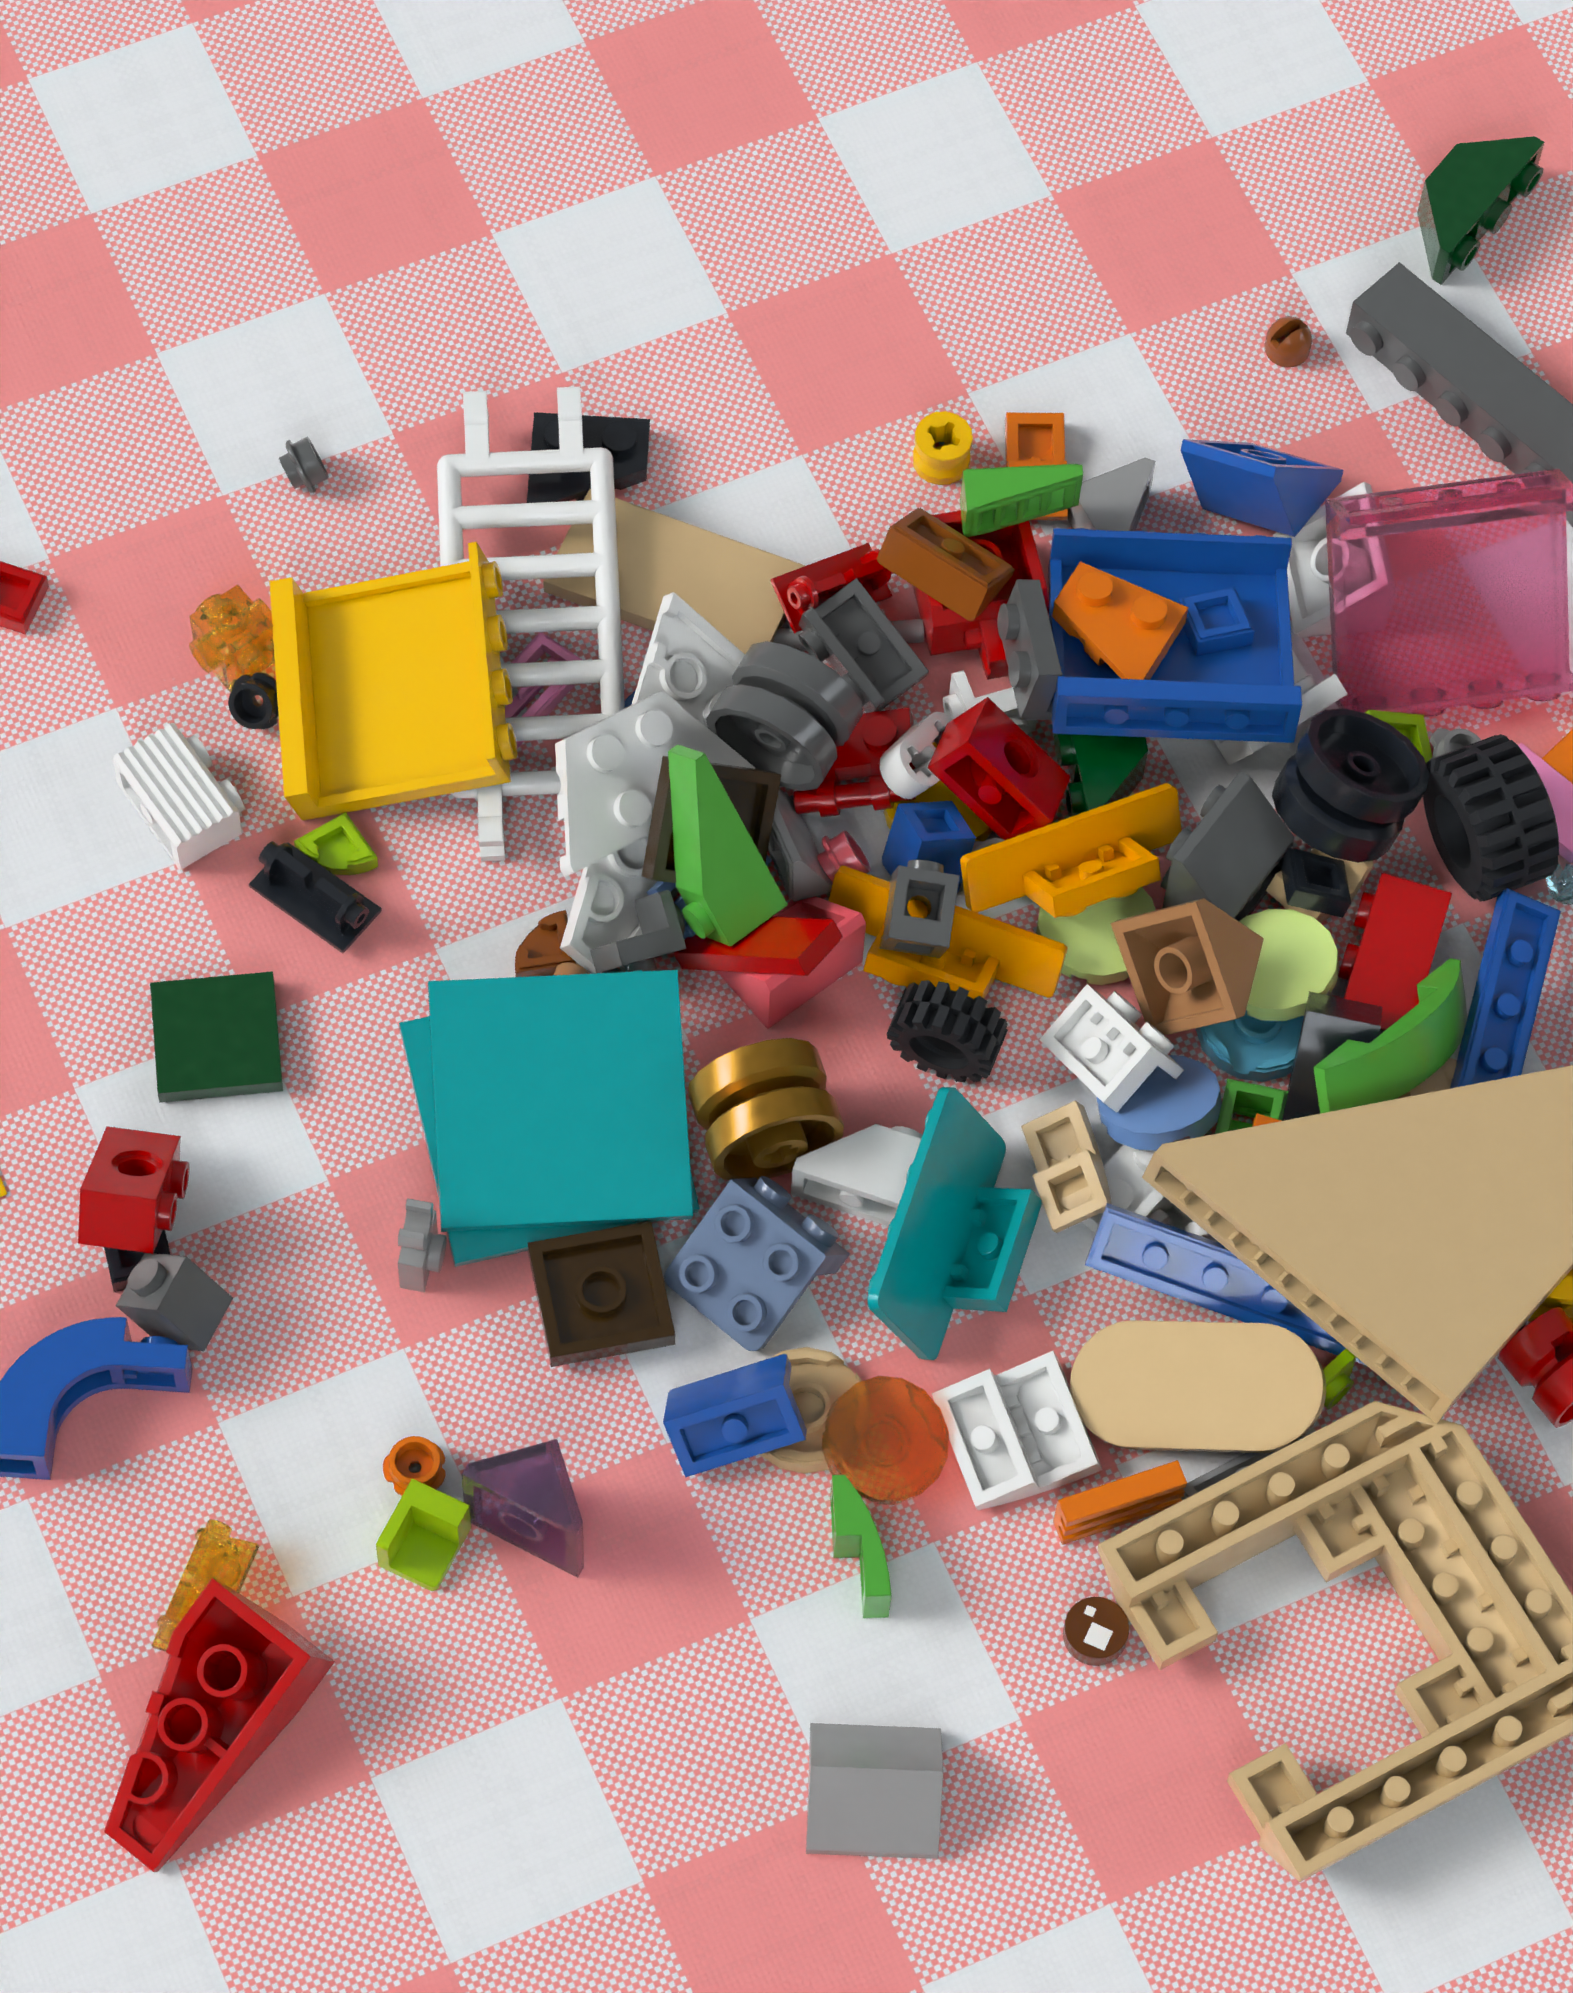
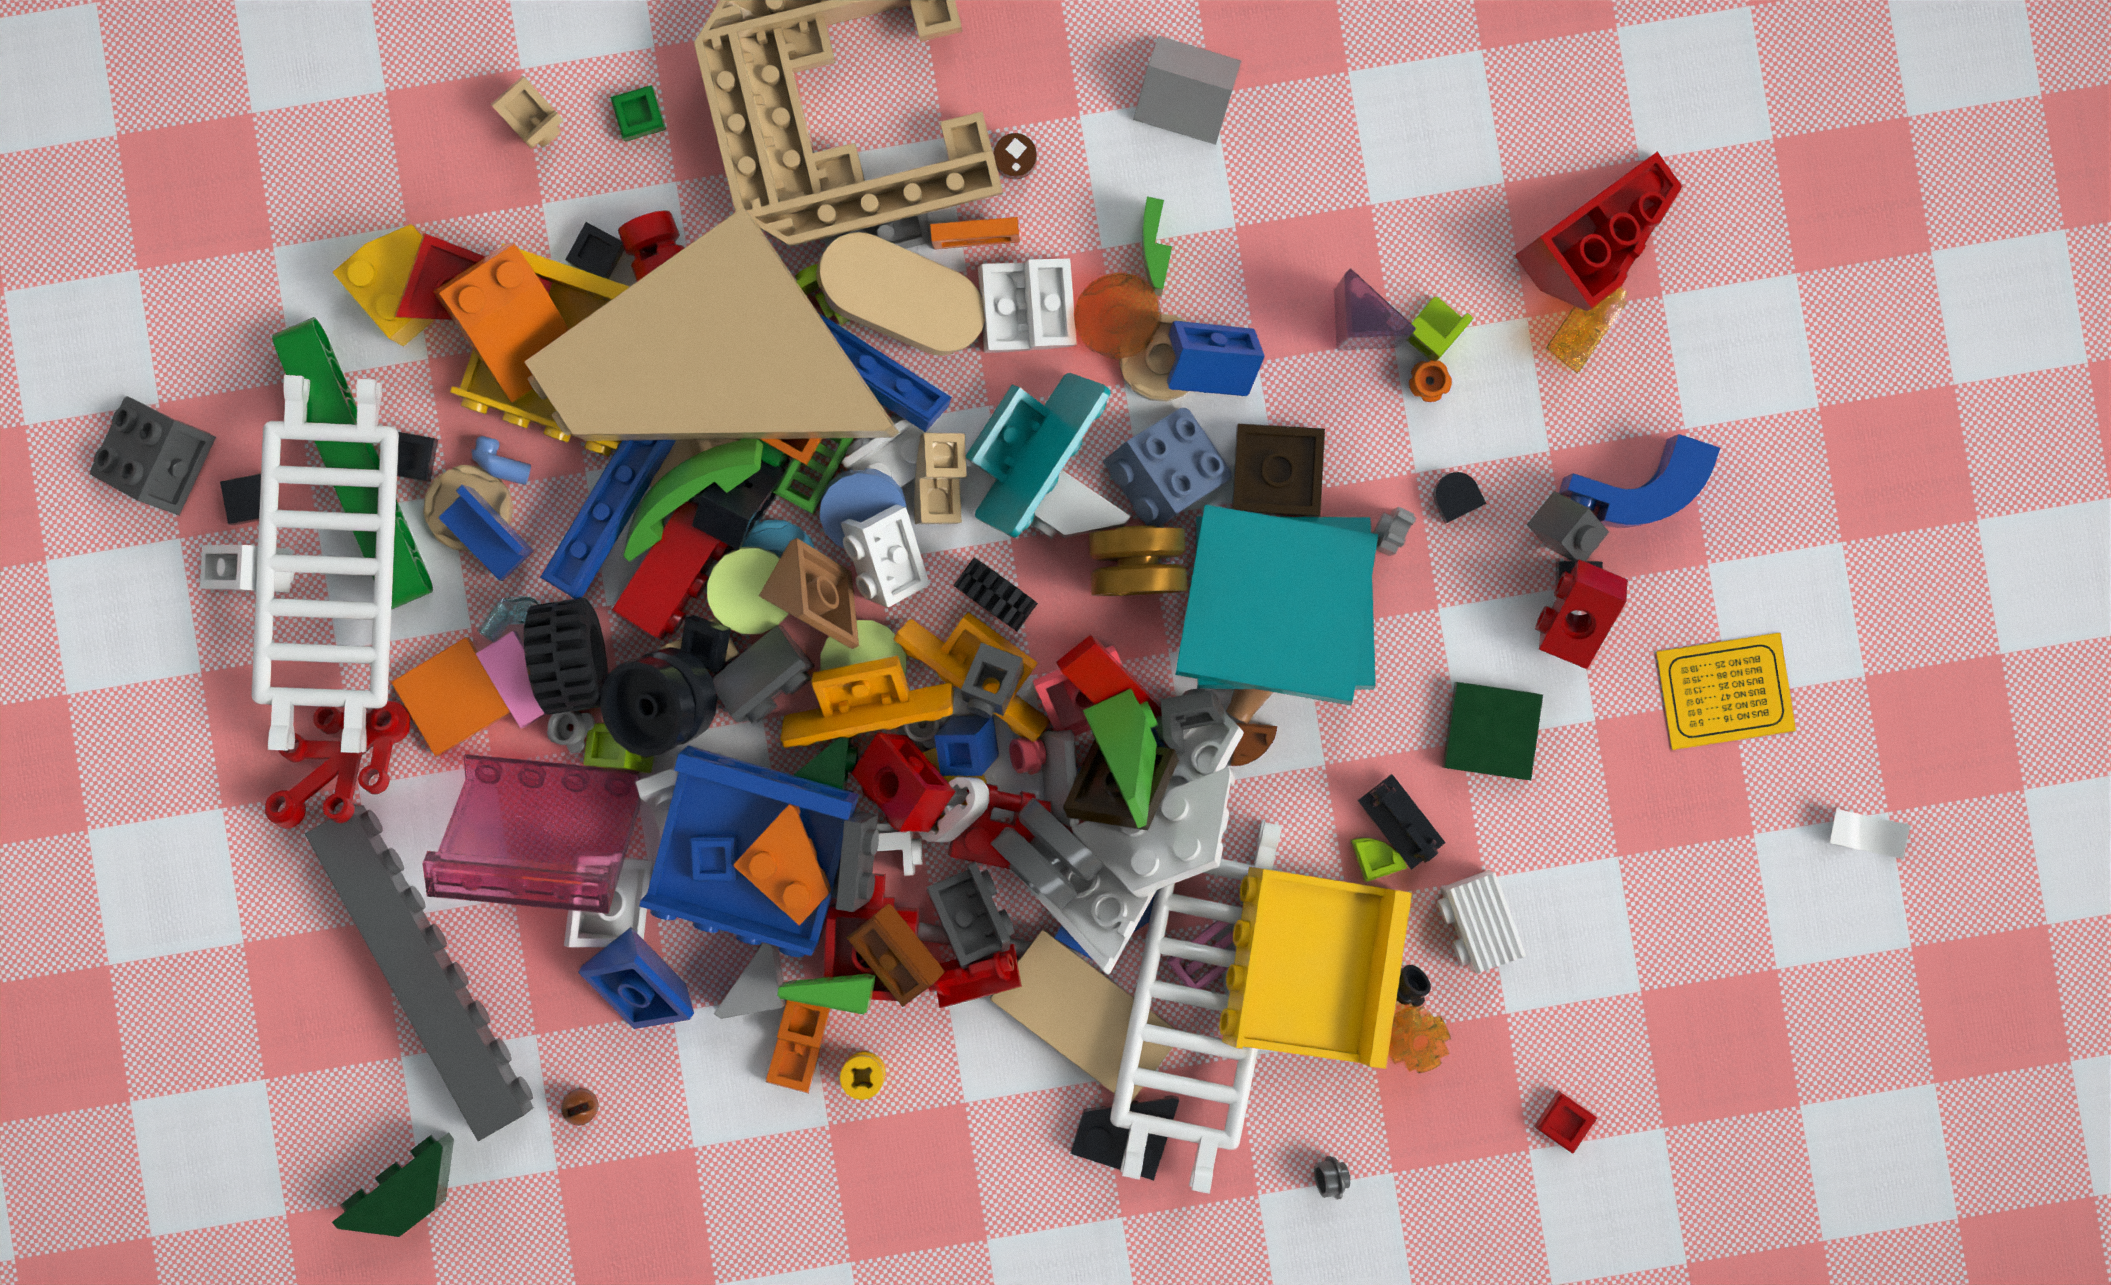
camera: 160 degrees left, 25 degrees up
(337, 1324) = (1456, 496): none -> black tile

